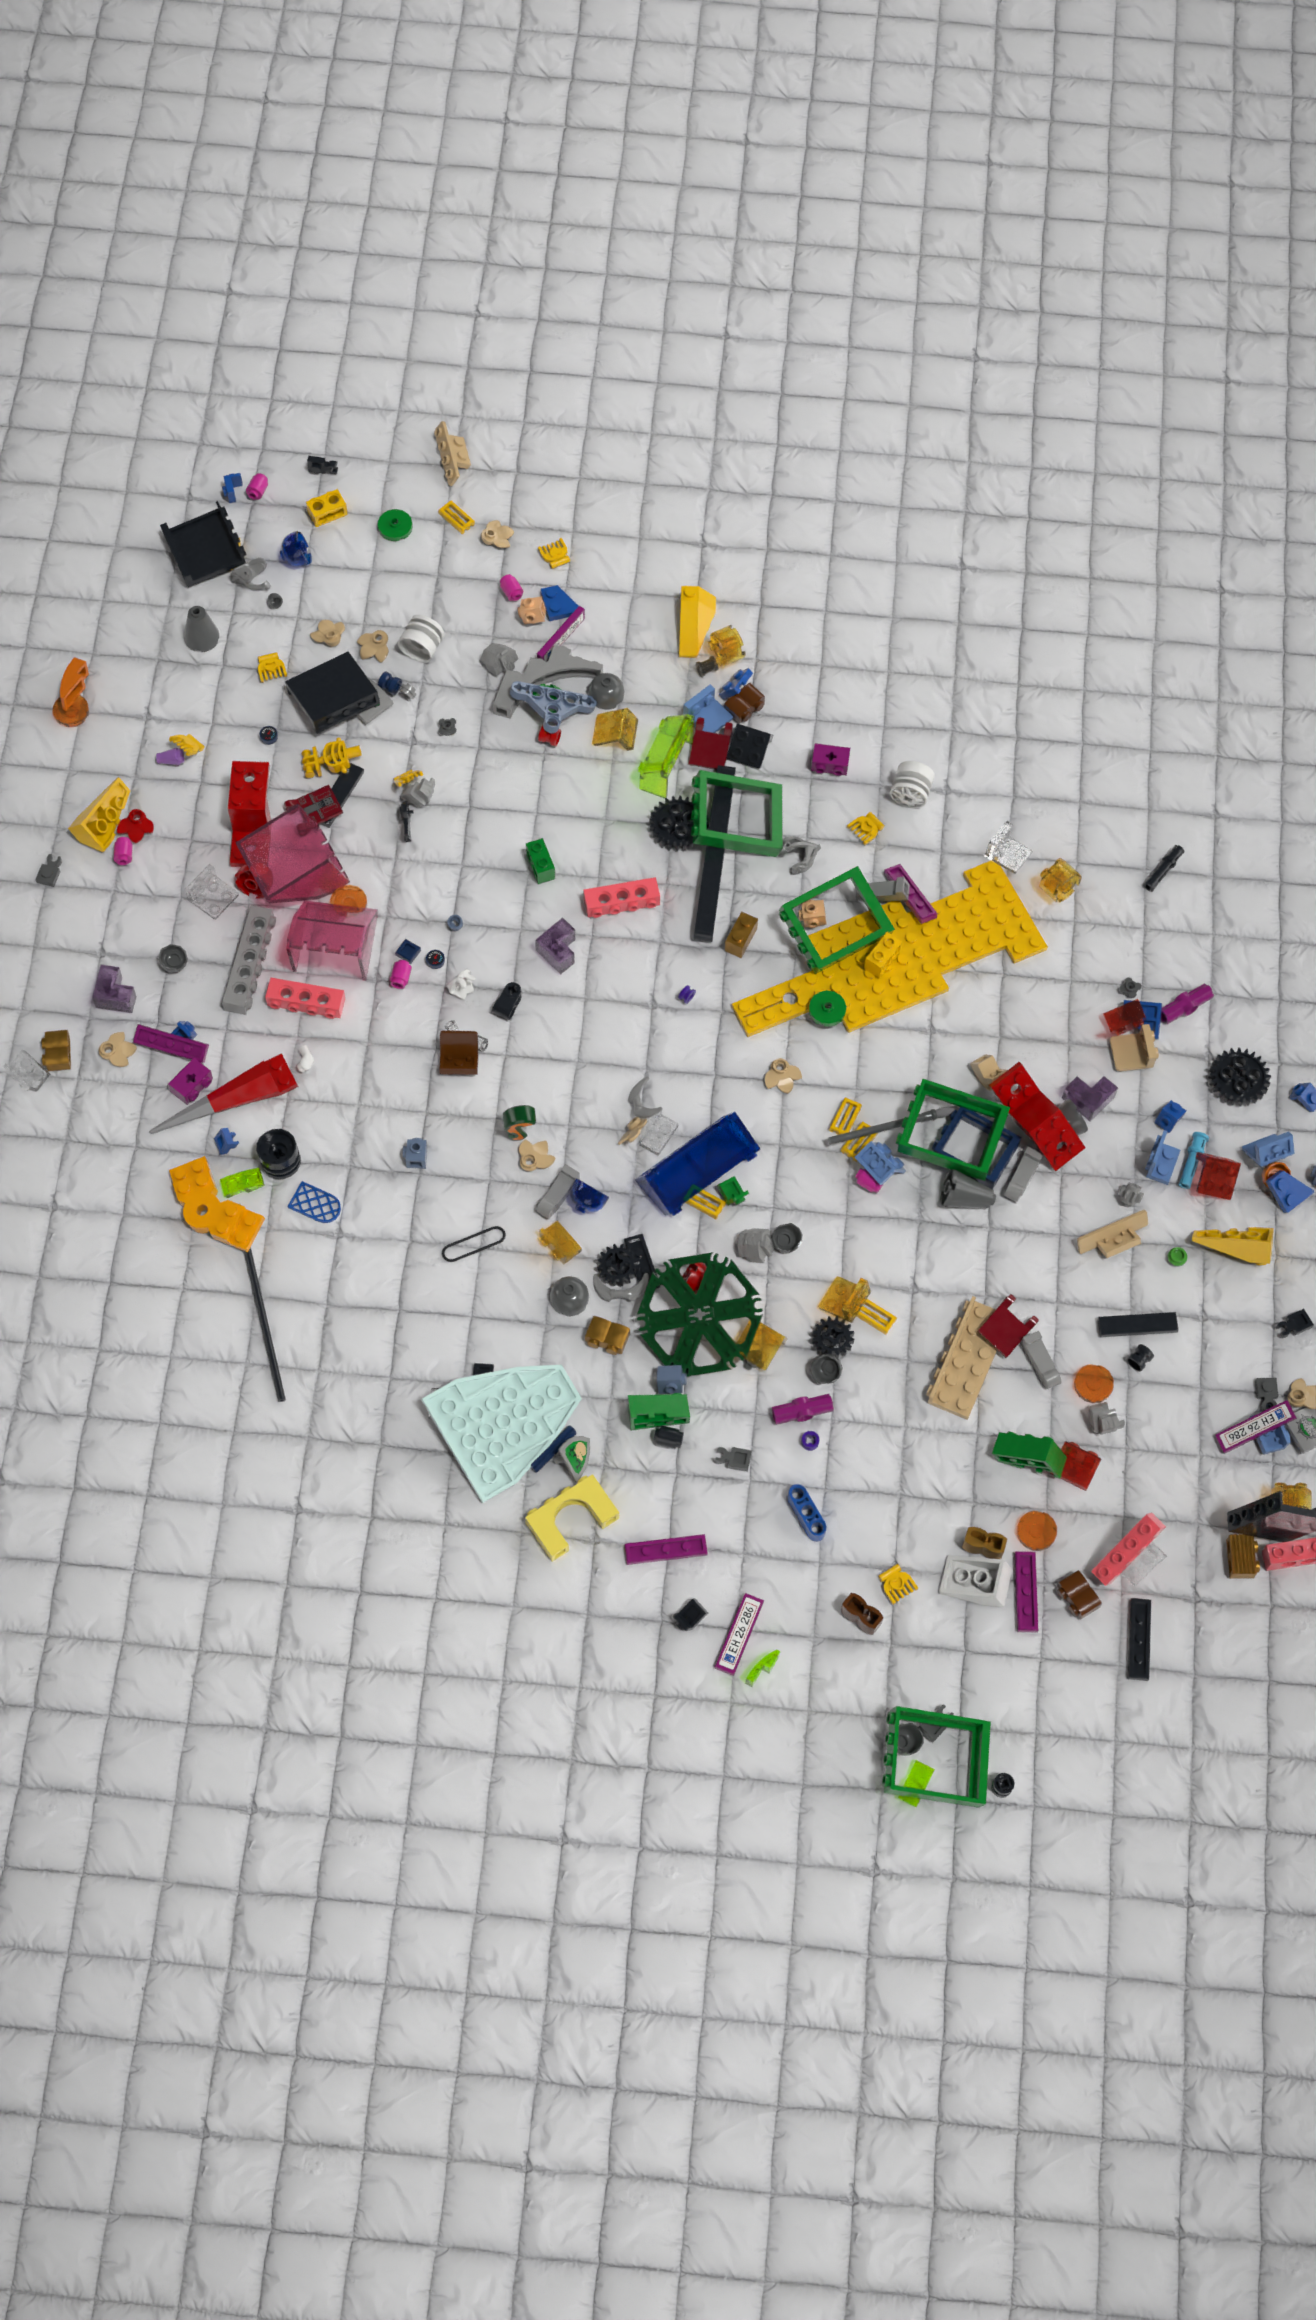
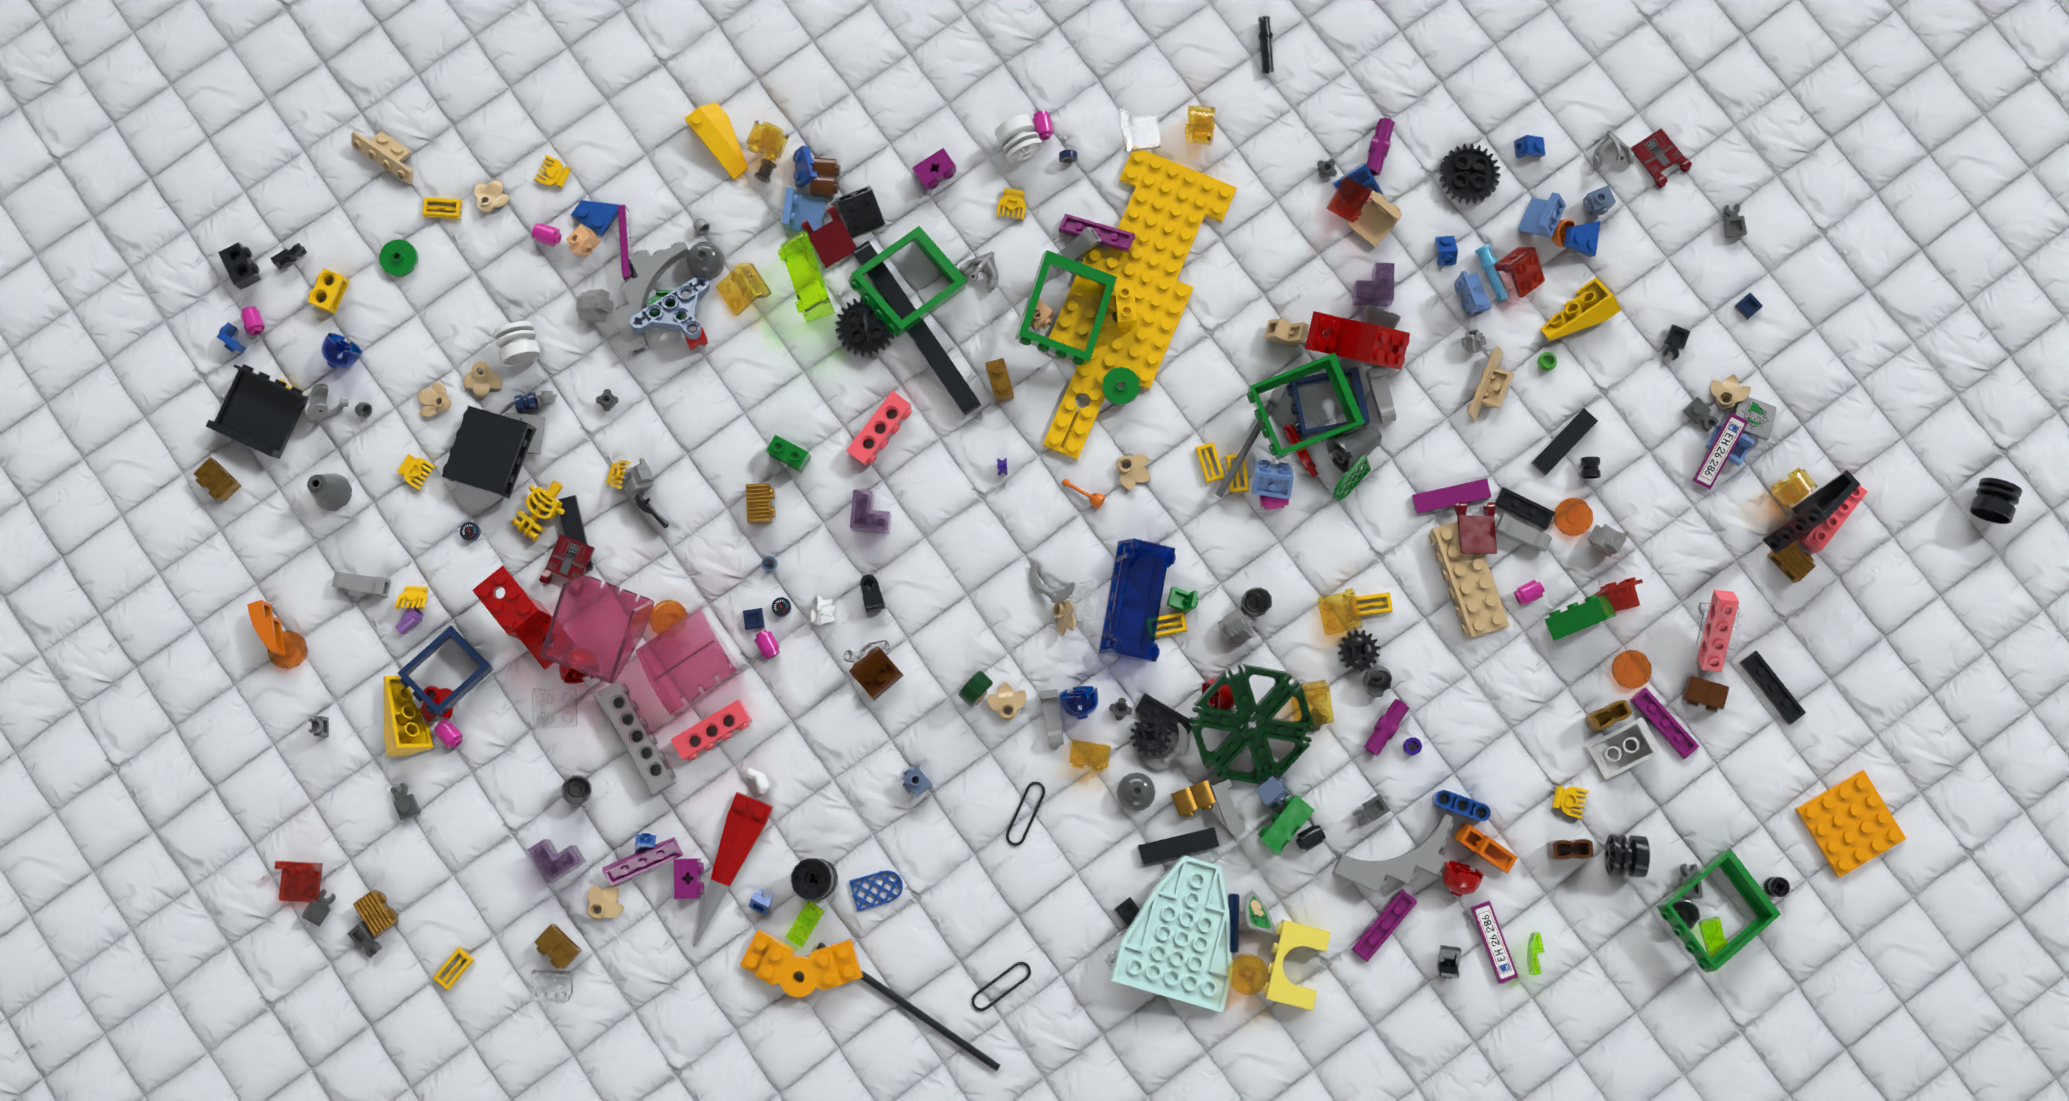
camera: 35 degrees left, 15 degrees up
(43, 773) = (319, 726): none -> dark grey plate
(133, 566) = (216, 479): none -> pearl gold brick
(161, 828) = (462, 690): none -> dark blue window
(162, 708) = (362, 583): none -> light grey leg
(283, 446) = (237, 267): none -> black brick
(341, 1339) = (1004, 994): none -> black piece
(487, 877) = (759, 503): none -> pearl gold brick
(527, 1479) = (1255, 982): none -> clear yellow brick
(572, 1363) = (1178, 845): none -> black tile
(618, 1226) = (1115, 709): none -> dark grey plate
(626, 1362) = (1233, 824): none -> light grey leg
(628, 667) = (701, 226): none -> light grey hinge
(718, 1517) = (1424, 856): none -> light grey arch
(735, 1073) = (1095, 499): none -> orange hinge
(755, 1562) = (1460, 878): none -> red cylinder
(797, 1559) = (1485, 847): none -> orange slope
(901, 1654) = (1627, 855): none -> black wheel
(922, 1167) = (1303, 455): none -> red piece
(939, 826) = (1068, 156): none -> dark blue tile
(940, 791) = (1043, 125): none -> dark pink brick
(940, 1202) = (1336, 494): none -> green window
(1005, 1286) = (1451, 495): none -> magenta tile
(1006, 1406) = (1529, 592): none -> dark pink brick
(1060, 1346) = (1524, 508): none -> black tile
(1109, 1793) = (1850, 823): none -> light orange plate

